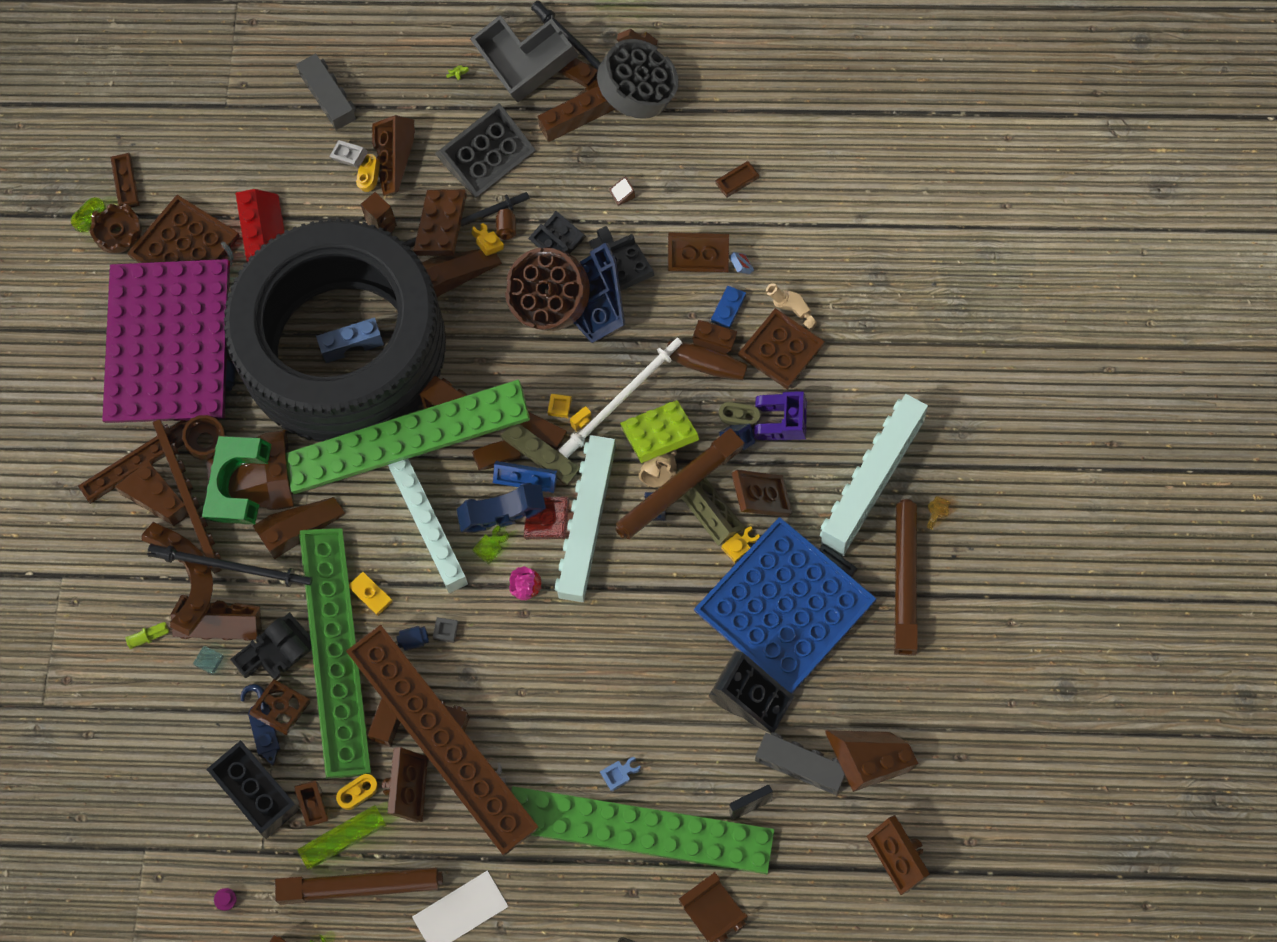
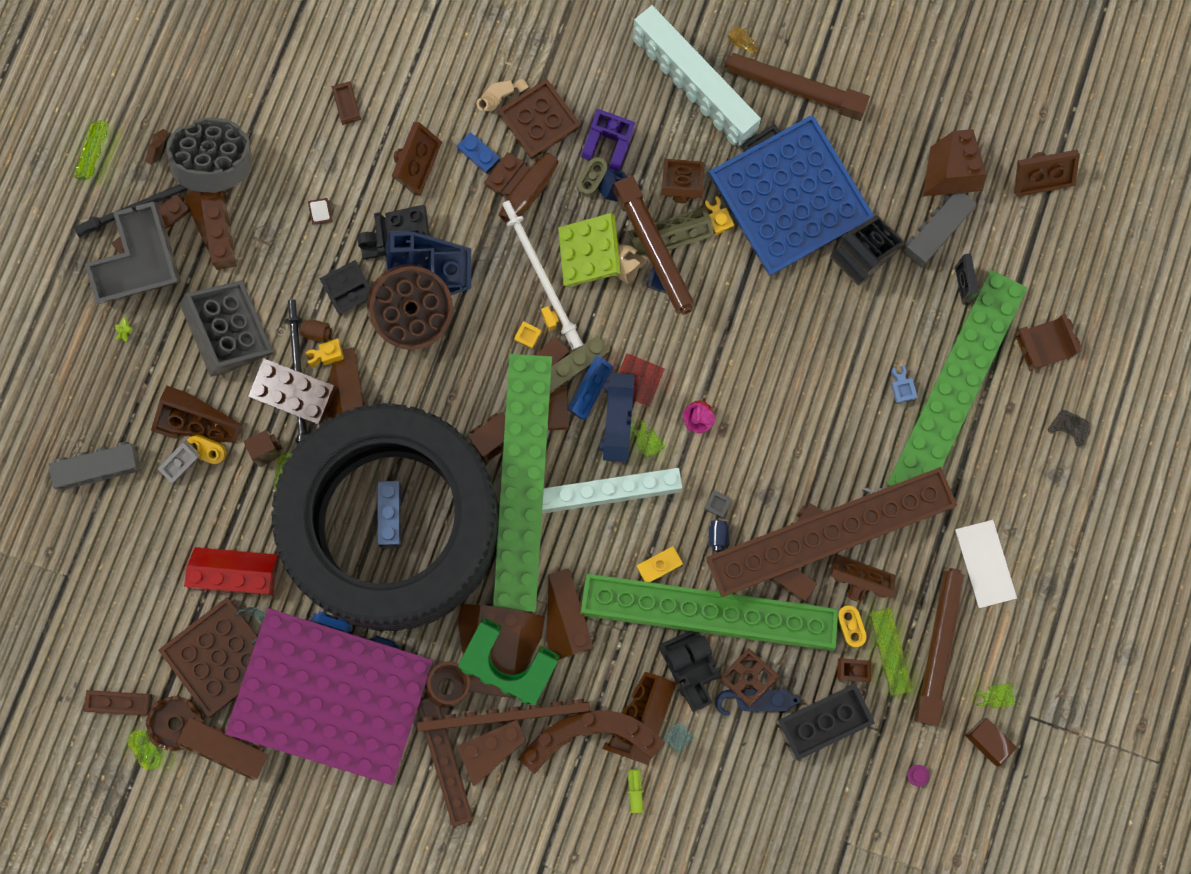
camera: 80 degrees left, 10 degrees up
(96, 280) = (221, 748): none -> reddish brown brick
(170, 554) = (565, 744): black bar -> none
(586, 519) = (651, 343): light aqua brick -> none
(741, 263) = (439, 126): medium blue tile -> none

